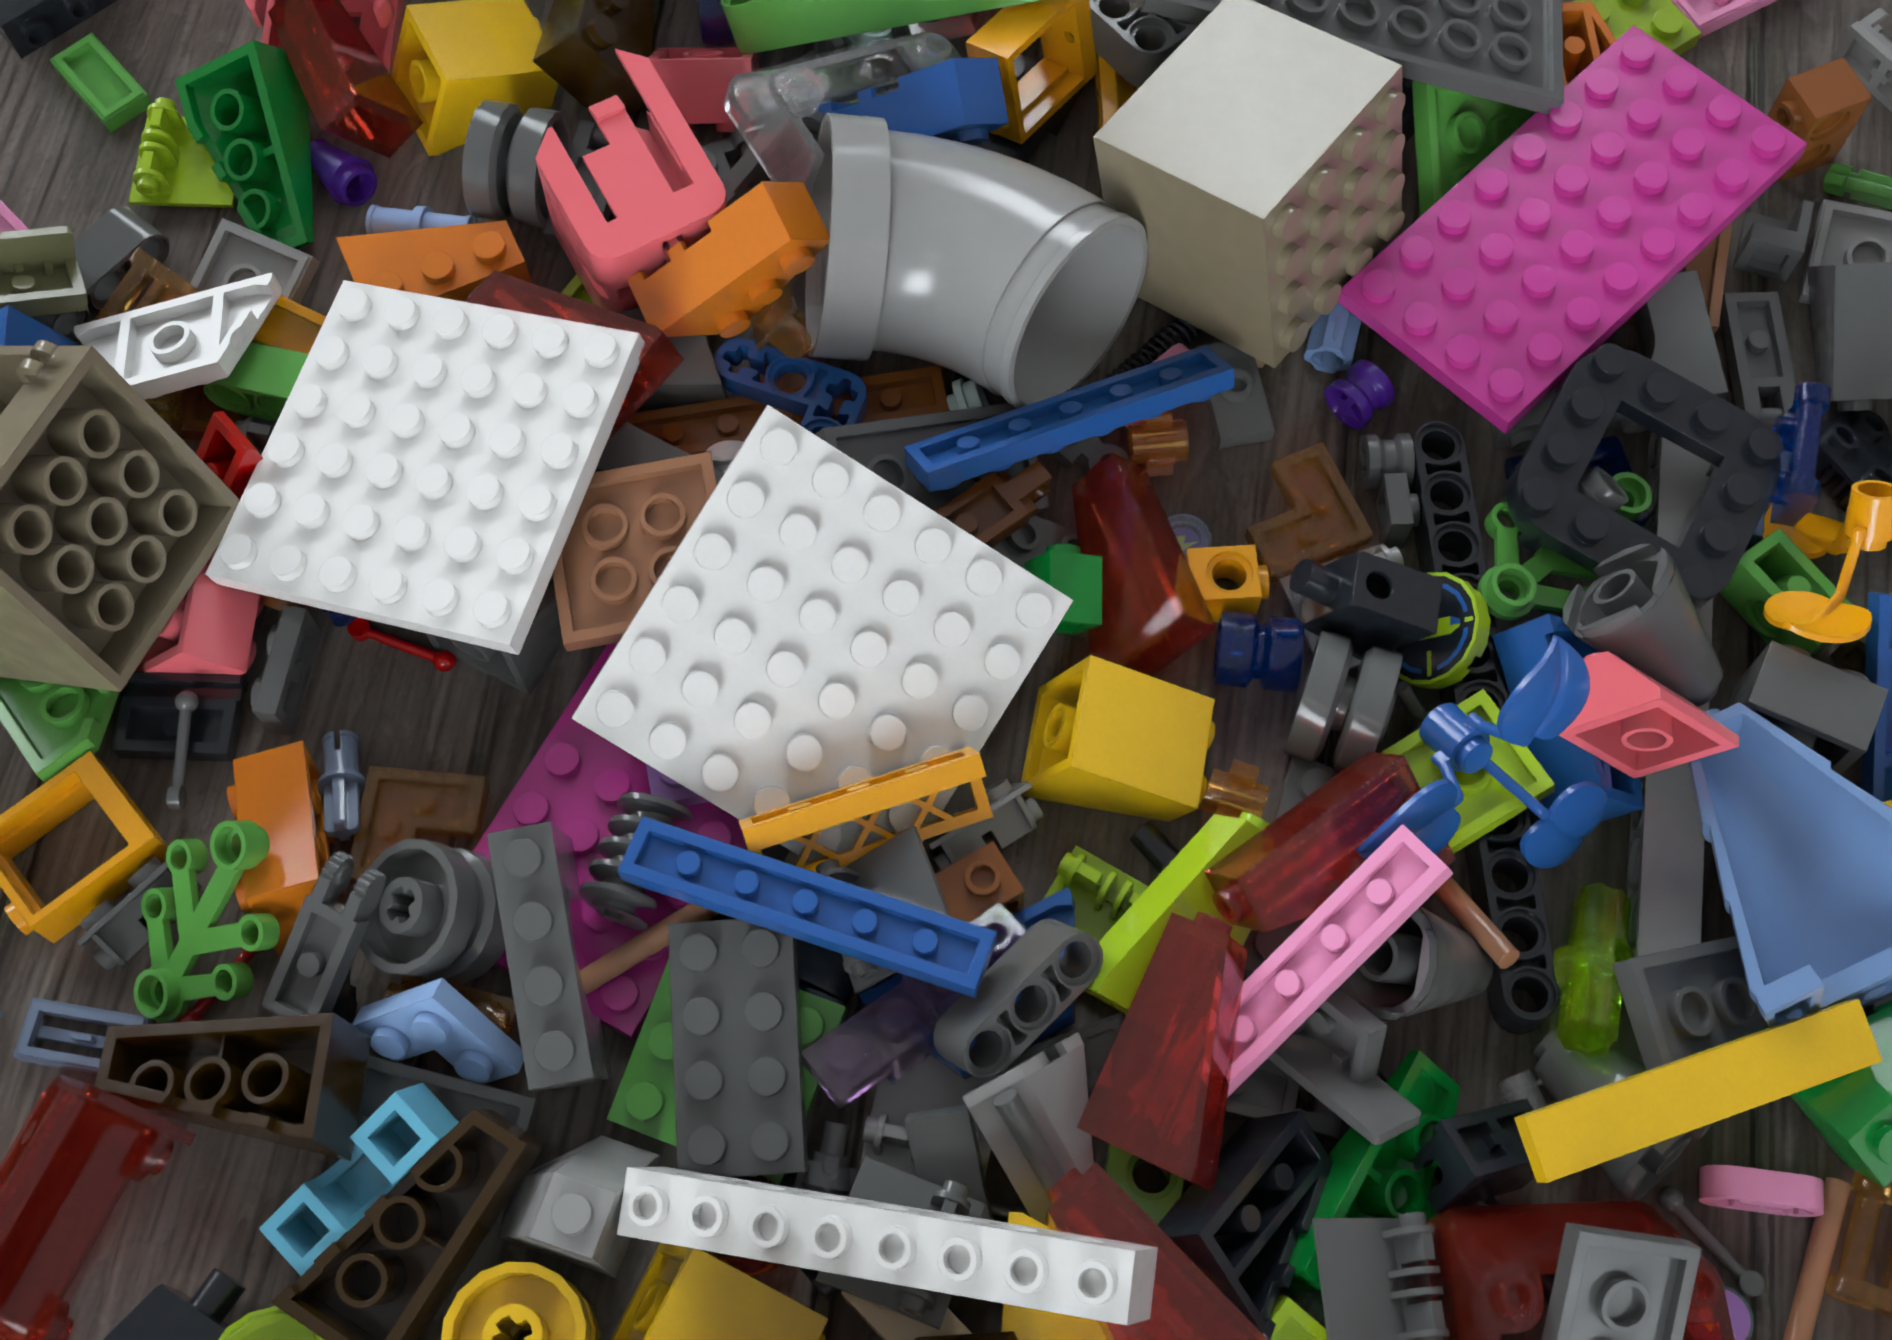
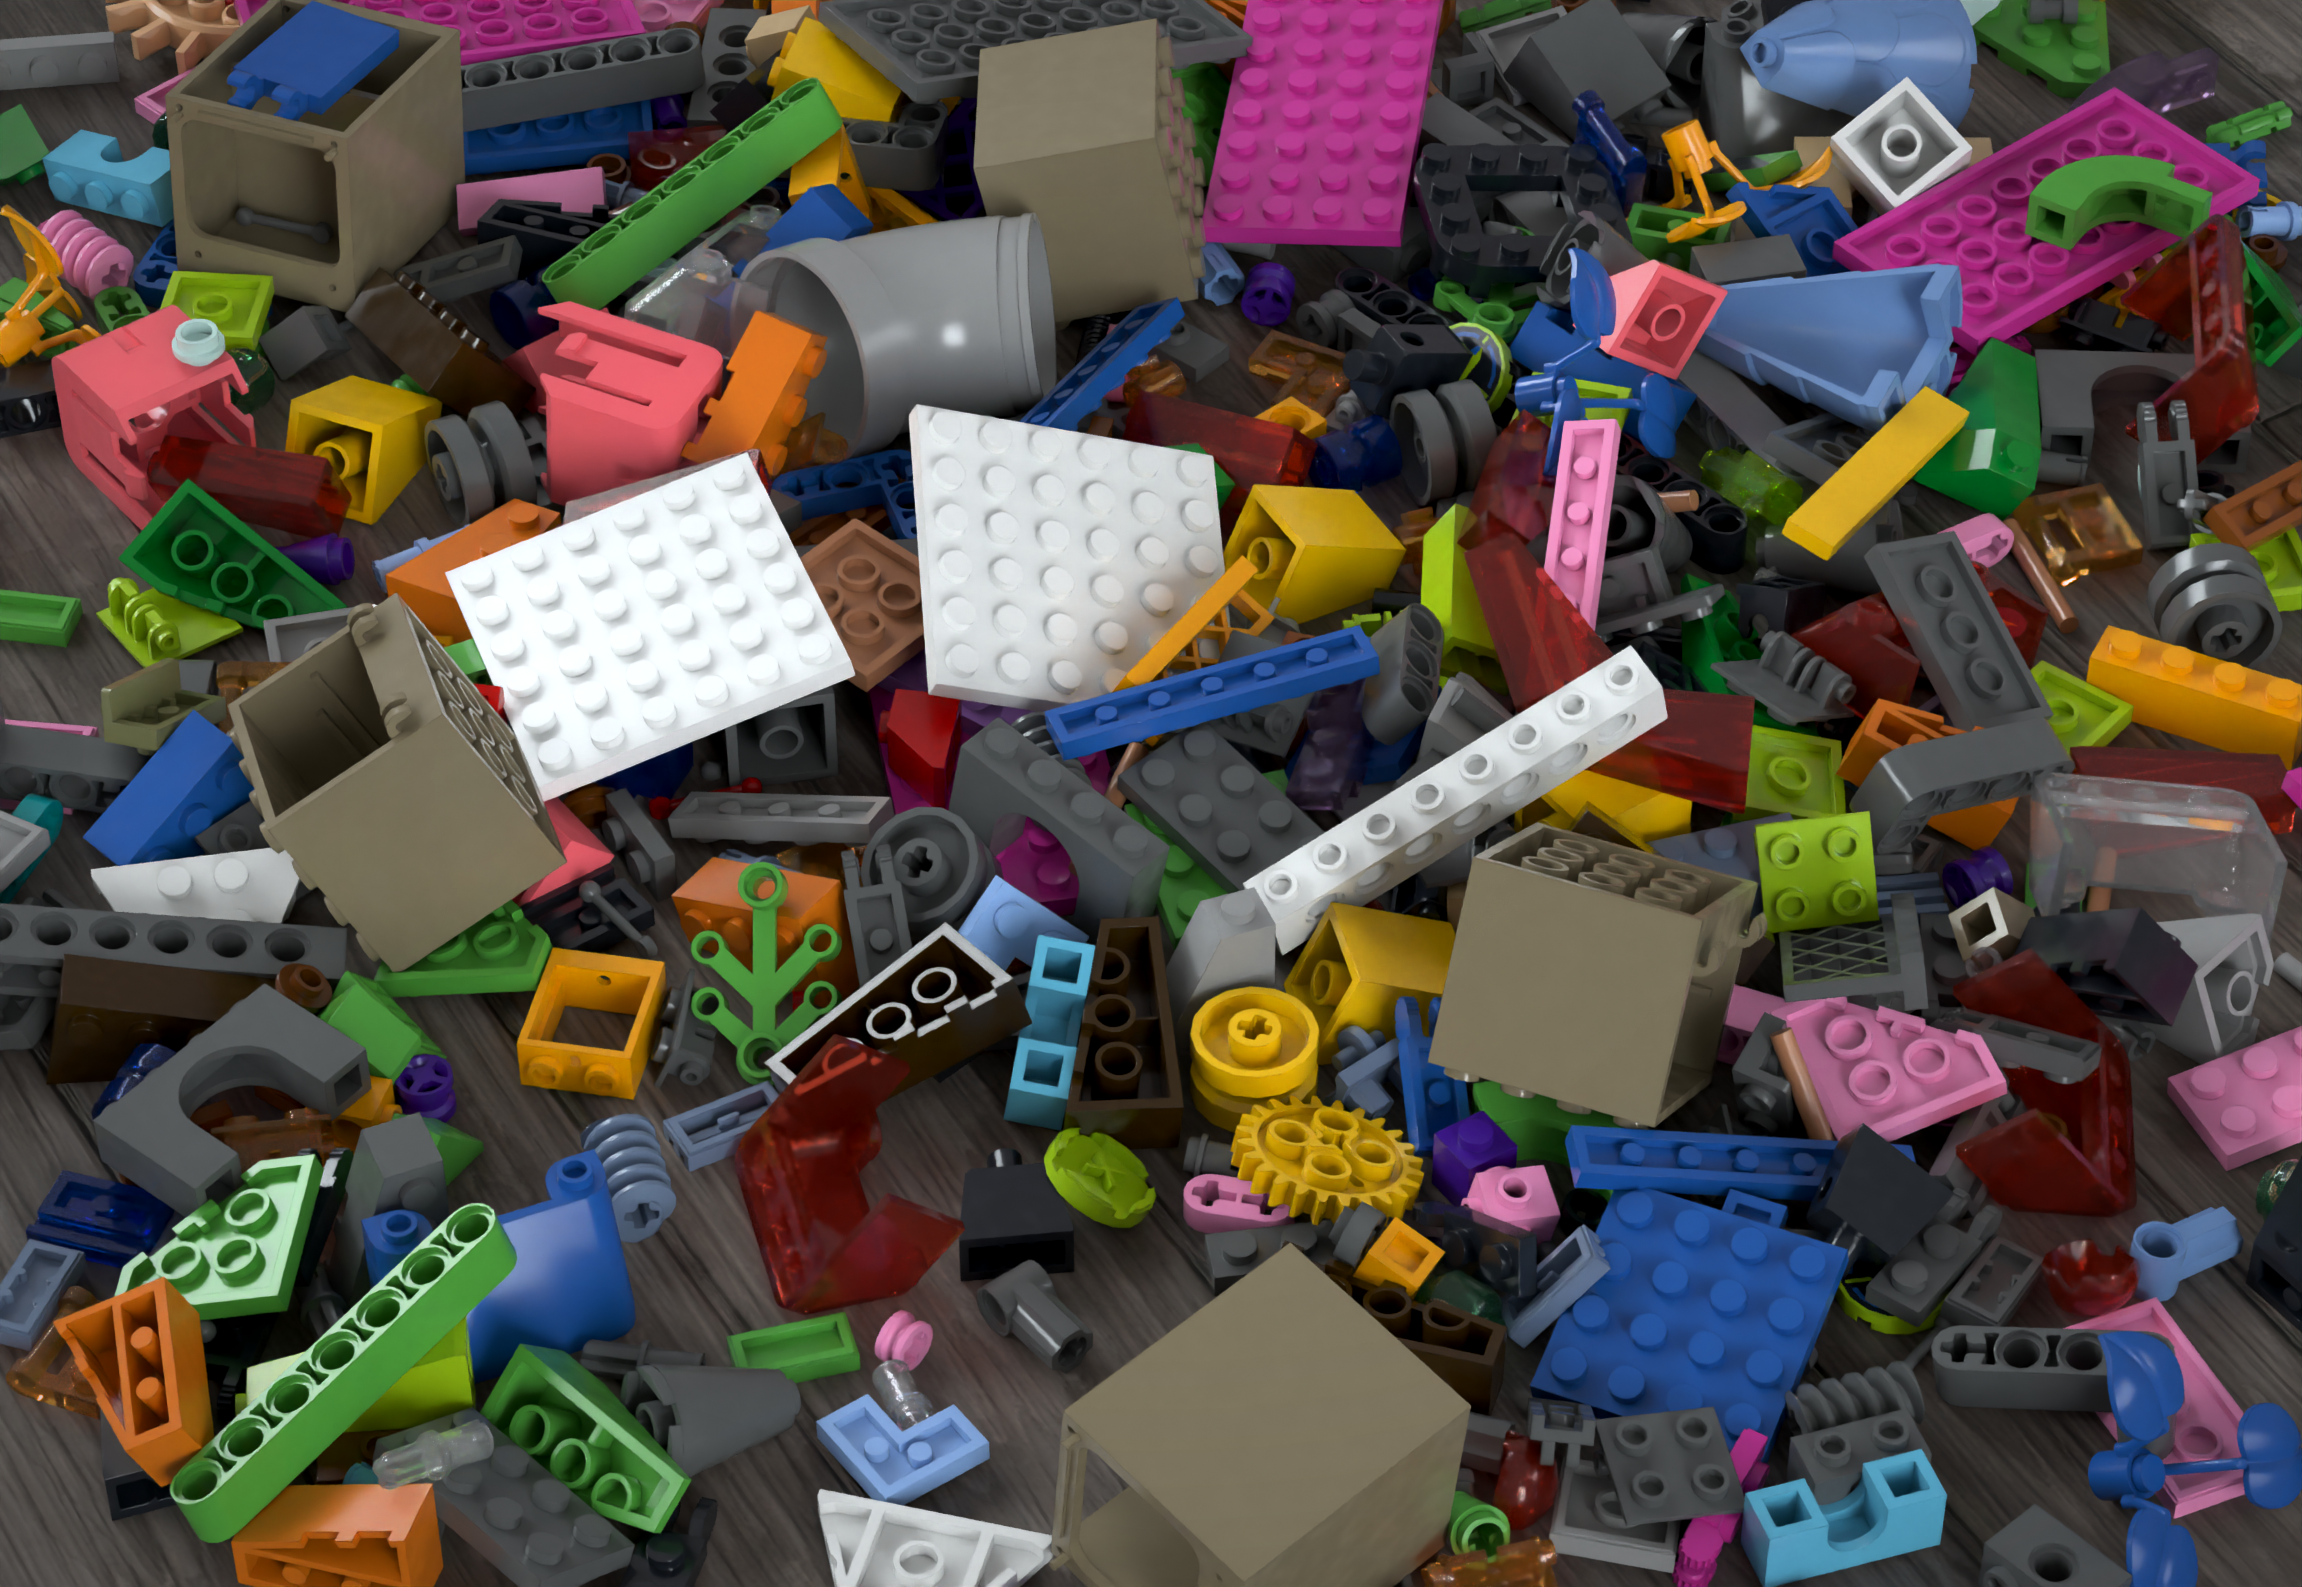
camera: 40 degrees left, 25 degrees down
(402, 735) = (780, 818): none -> light grey plate
(563, 750) = (923, 741): none -> red slope

